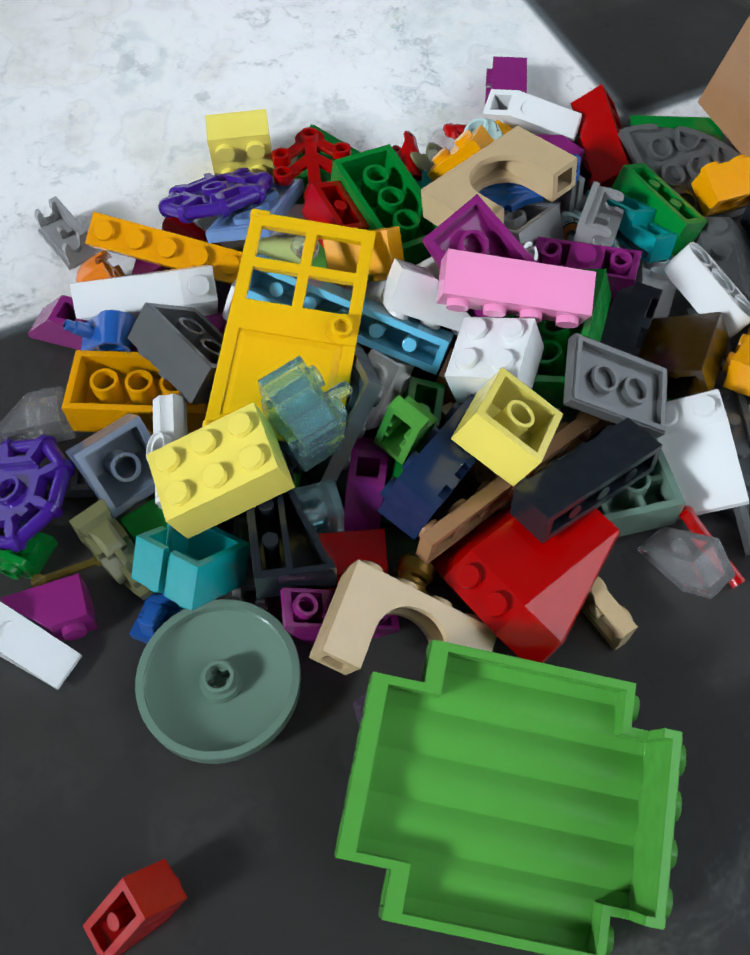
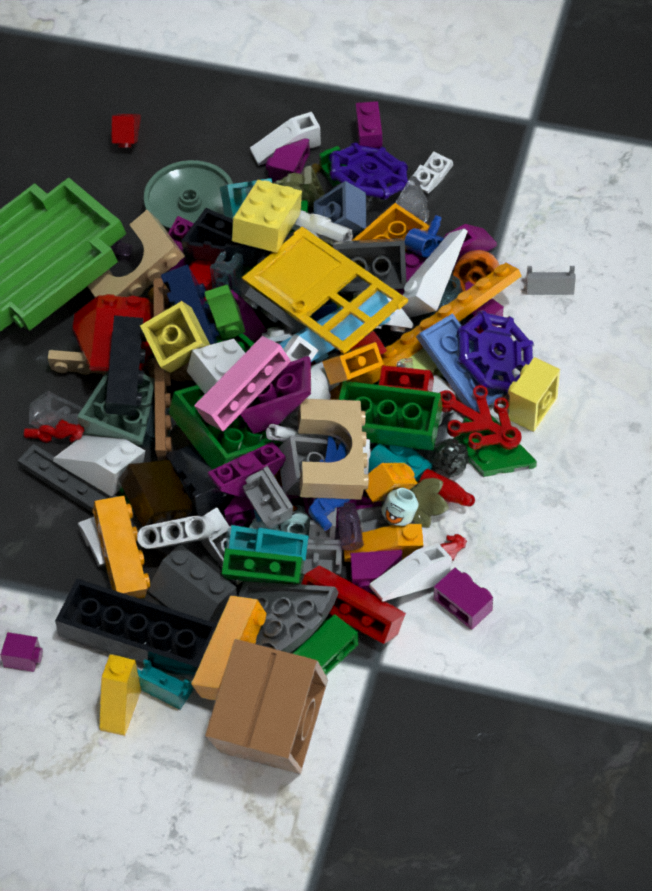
camera: 130 degrees right, 5 degrees down
(304, 414) = (257, 251): clear light blue brick -> none
(615, 385) = (157, 416): dark grey tile -> none

